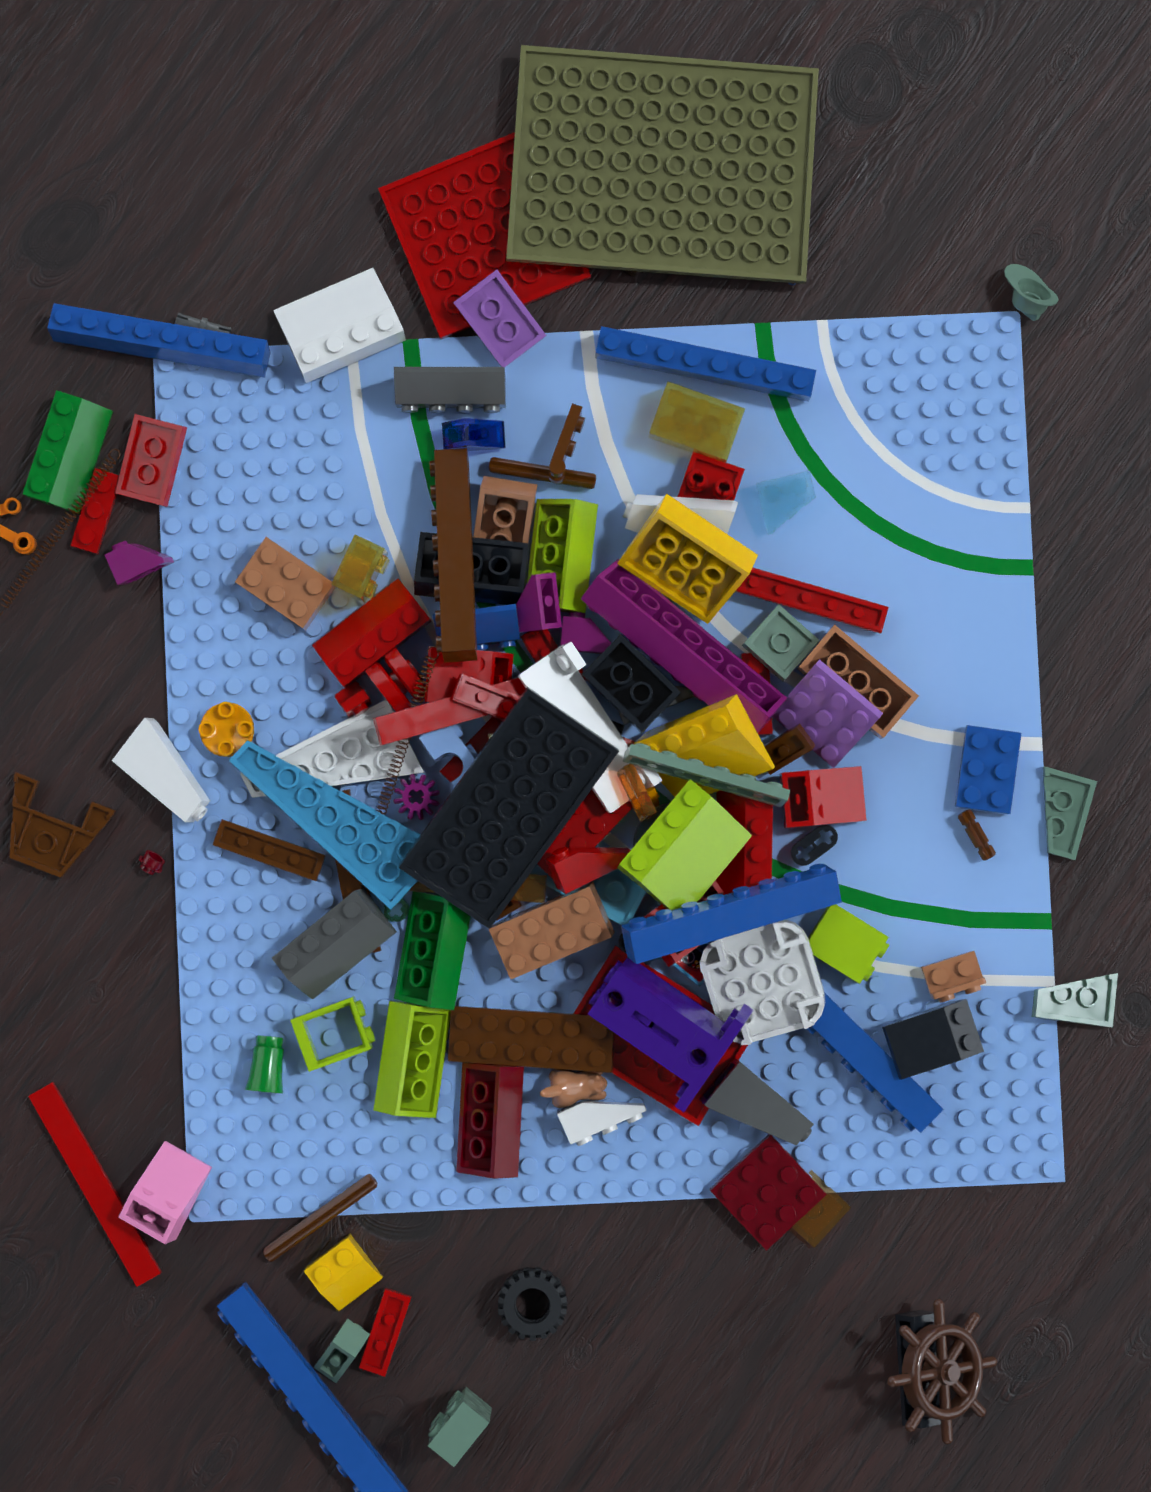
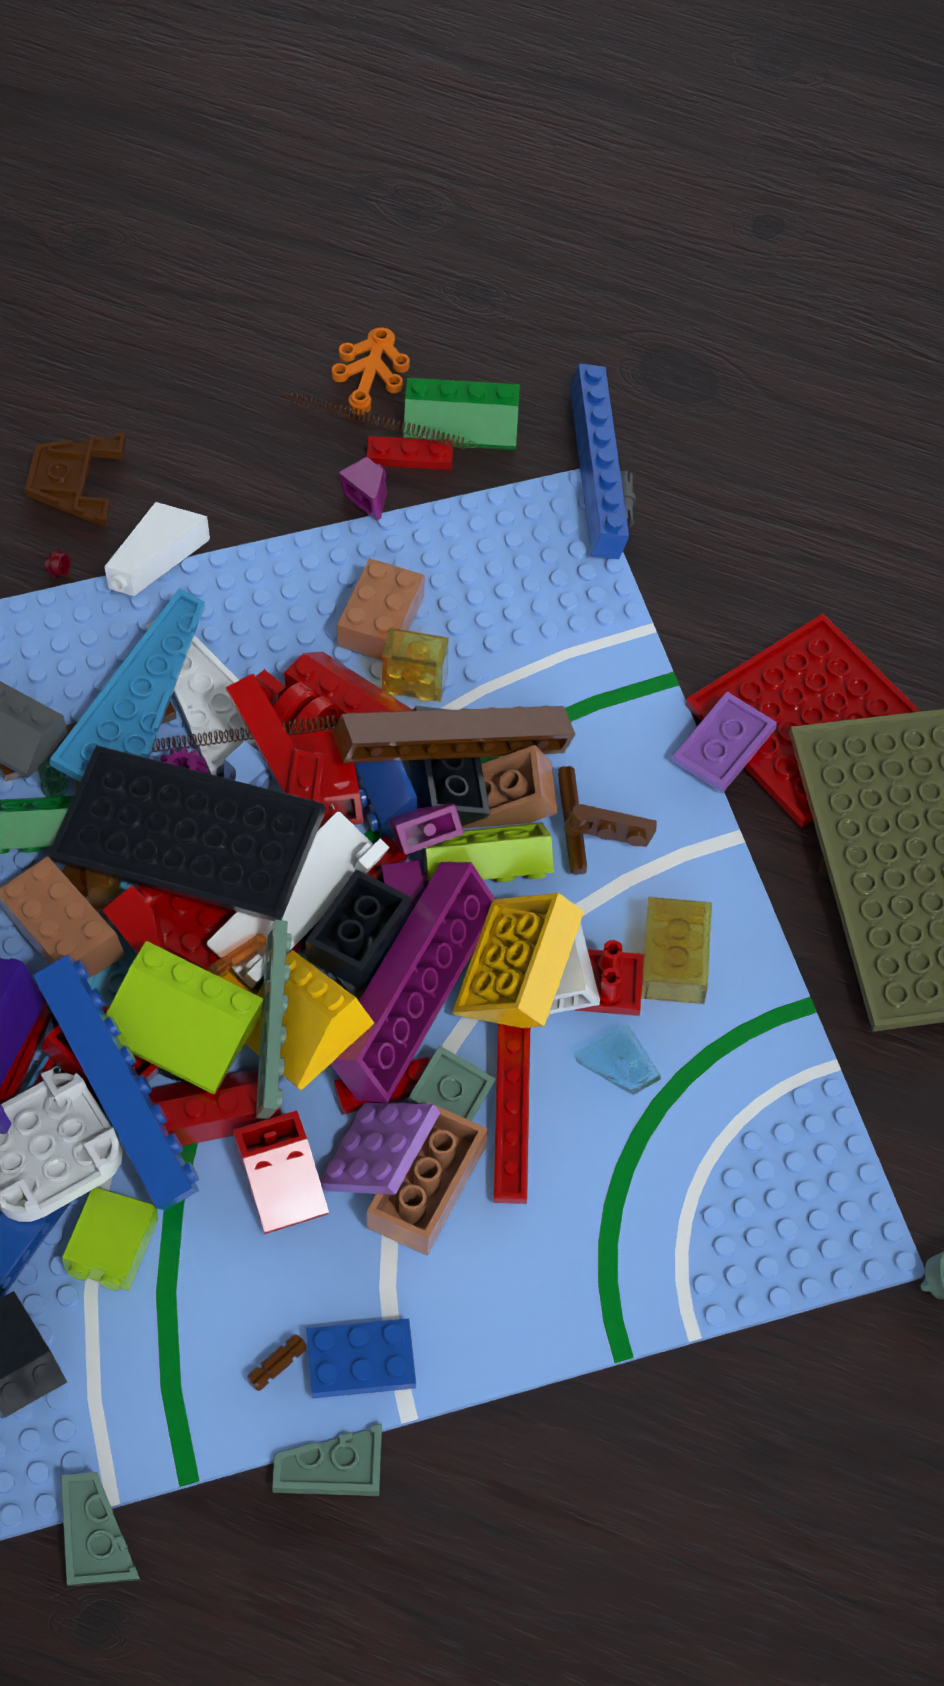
camera: 70 degrees right, 30 degrees down
(151, 460) = (474, 479): red plate -> none
(226, 728) = (218, 590): light orange dish -> none
(269, 850) = (92, 653): reddish brown plate -> none
(340, 325) = (665, 609): white slope -> none
(450, 388) = (635, 708): dark grey slope -> none
(473, 434) = (593, 745): clear blue slope -> none
(705, 364) = (745, 948): blue brick -> none
(788, 747) = (328, 1119): reddish brown plate -> none
(809, 840) = (225, 1176): black beam -> none
(953, 976) = (96, 1375): nougat bracket -> none

